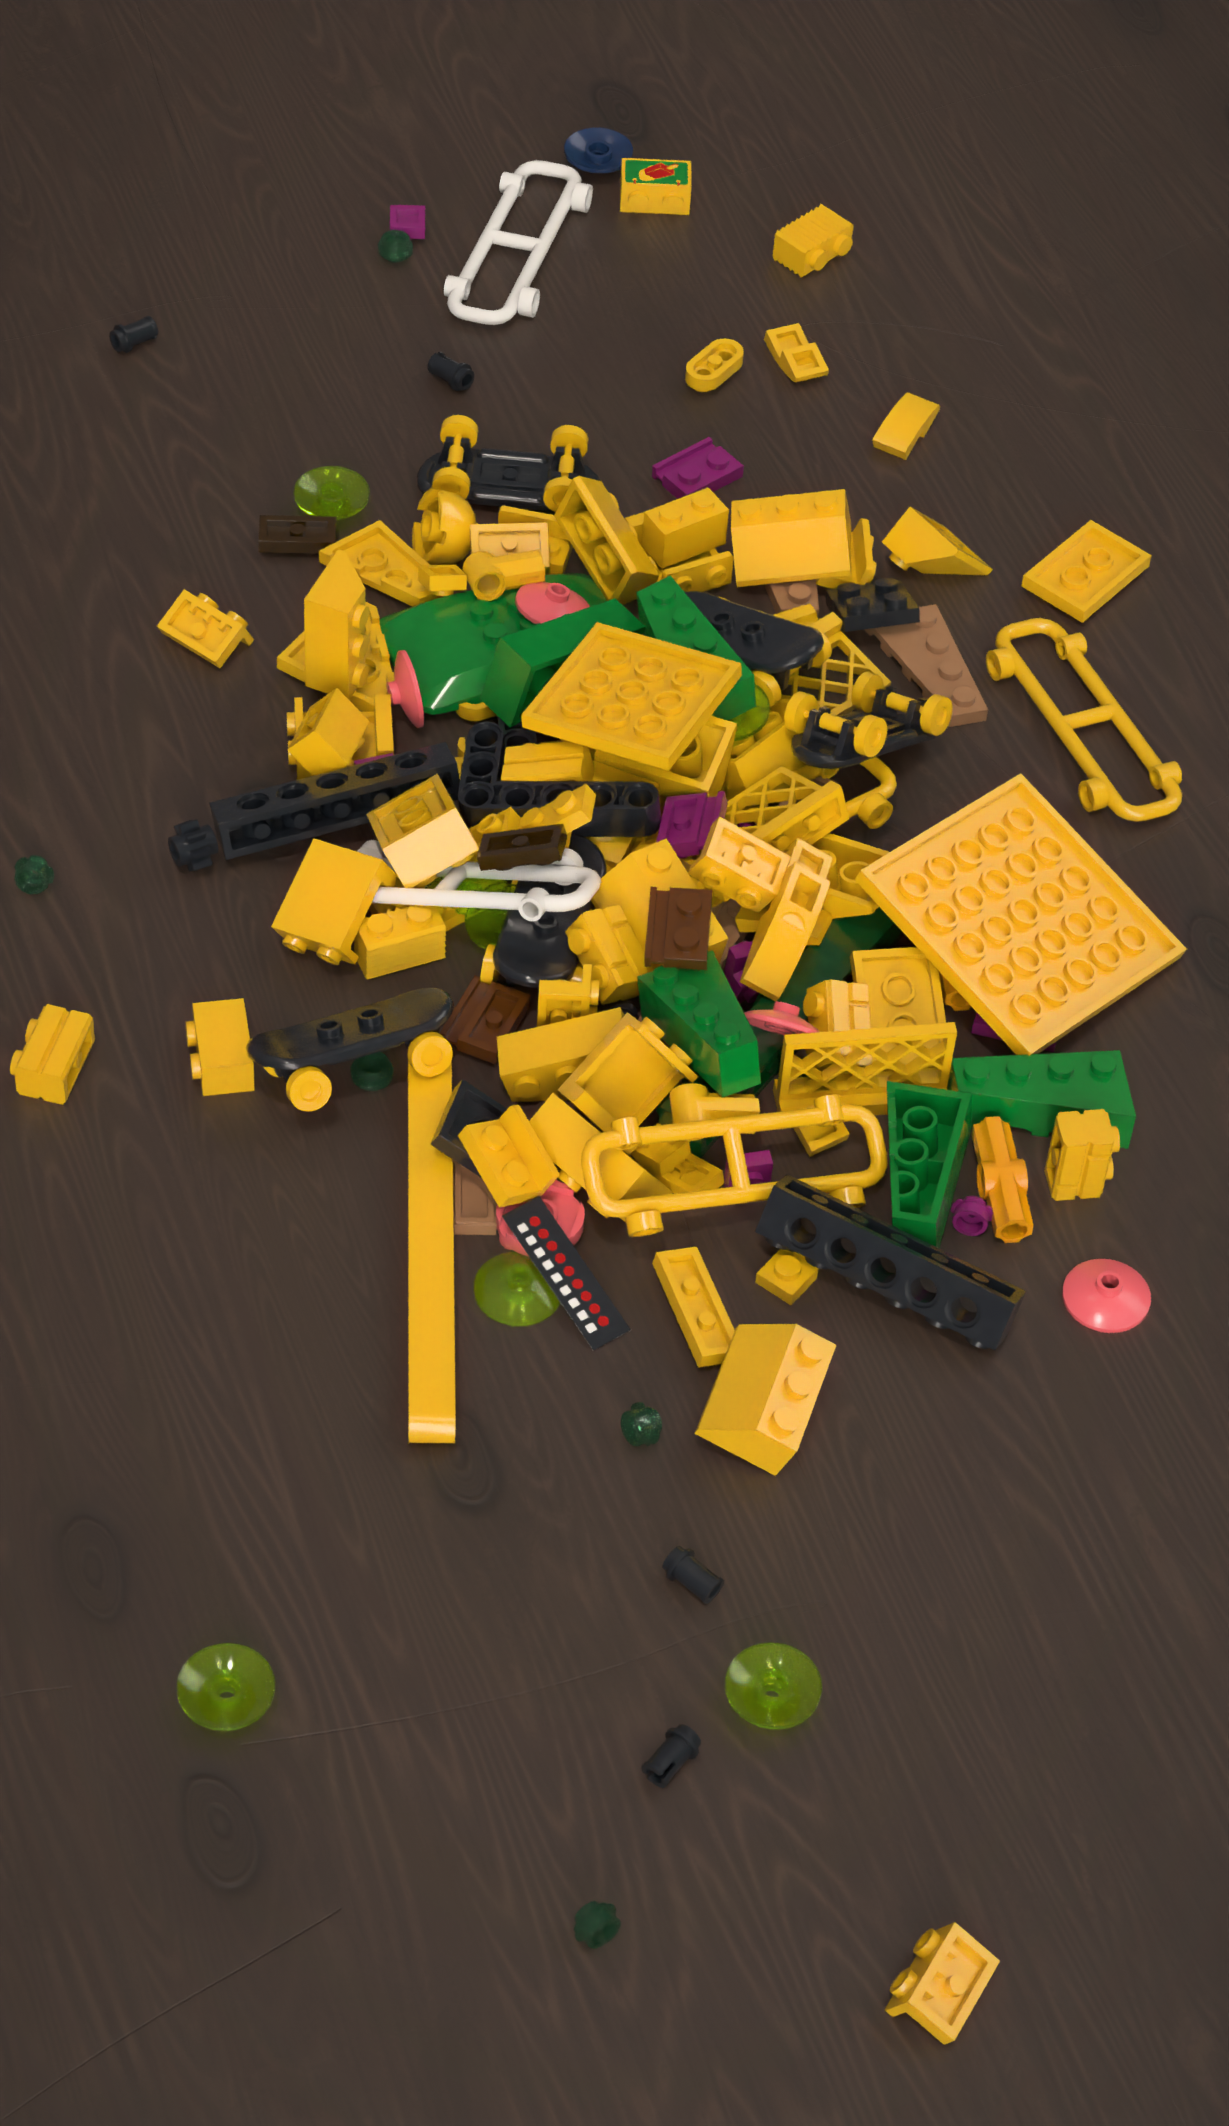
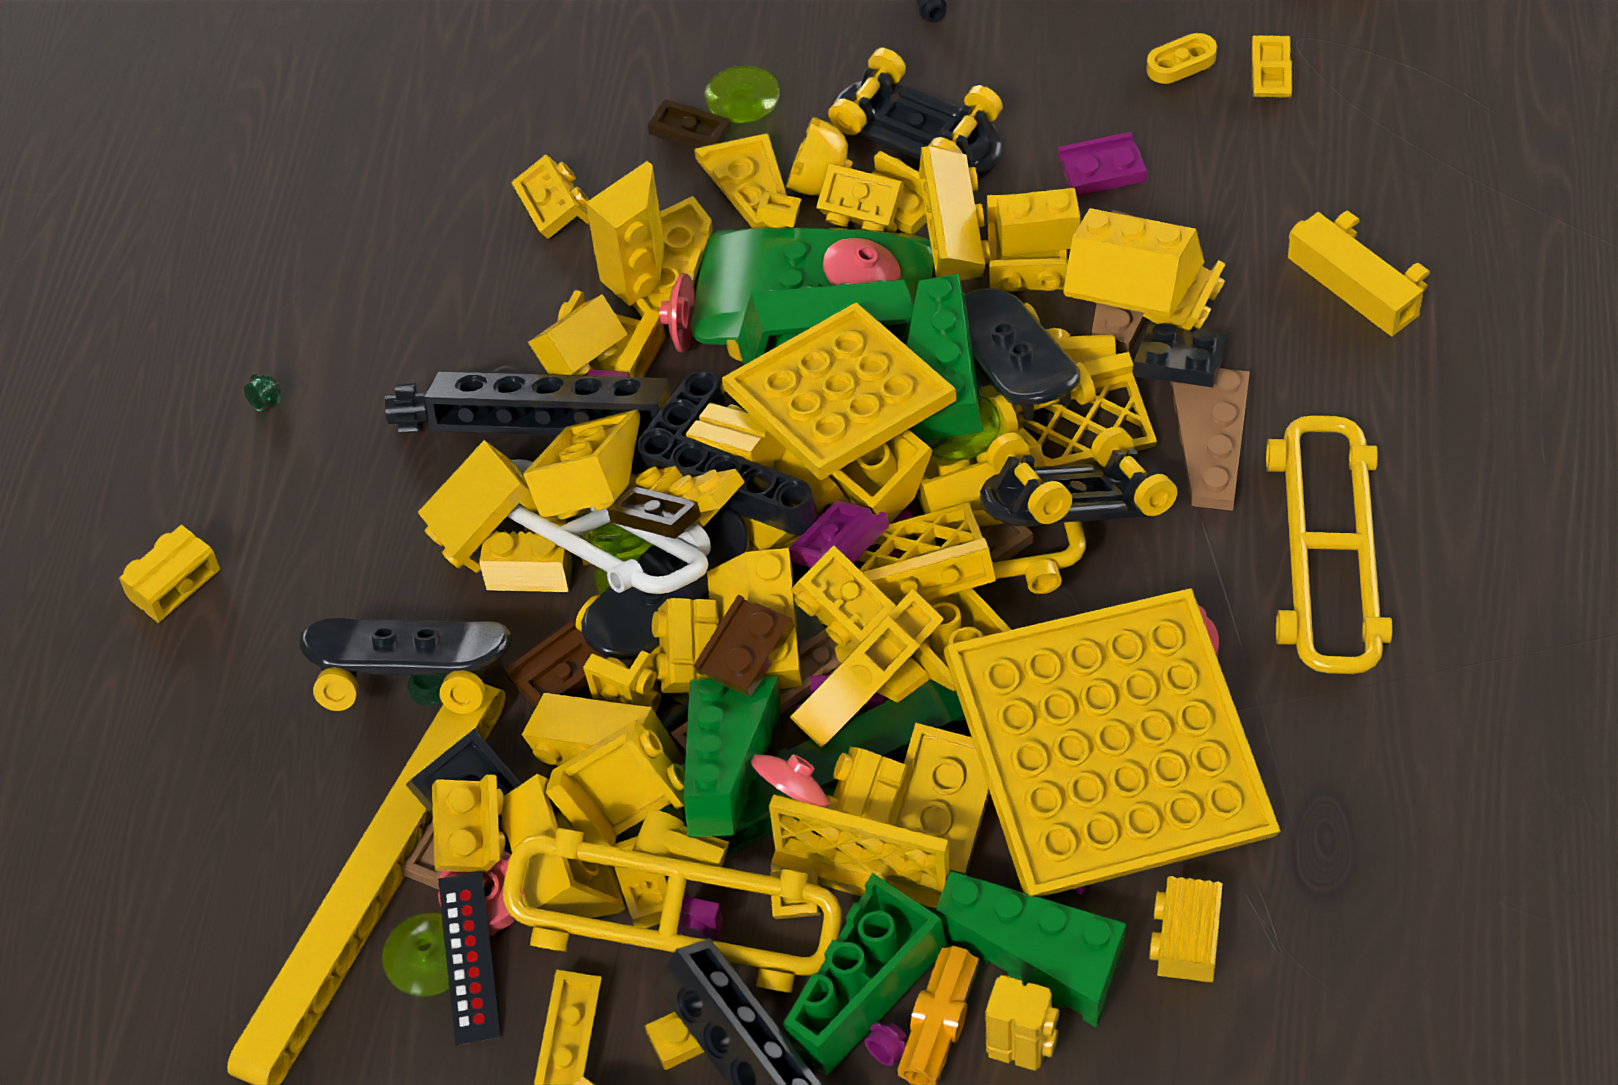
camera: 35 degrees right, 5 degrees up
(220, 1041) = (308, 599): yellow brick -> none
(502, 572) = (821, 219): yellow piece -> none
(904, 425) = (1335, 168): yellow slope -> none
(931, 547) = (1281, 309): yellow slope -> none
(975, 500) = (1356, 273): none -> yellow brick
(1086, 571) = (1427, 380): yellow plate -> none
(1161, 1045) = (1188, 929): none -> yellow brick

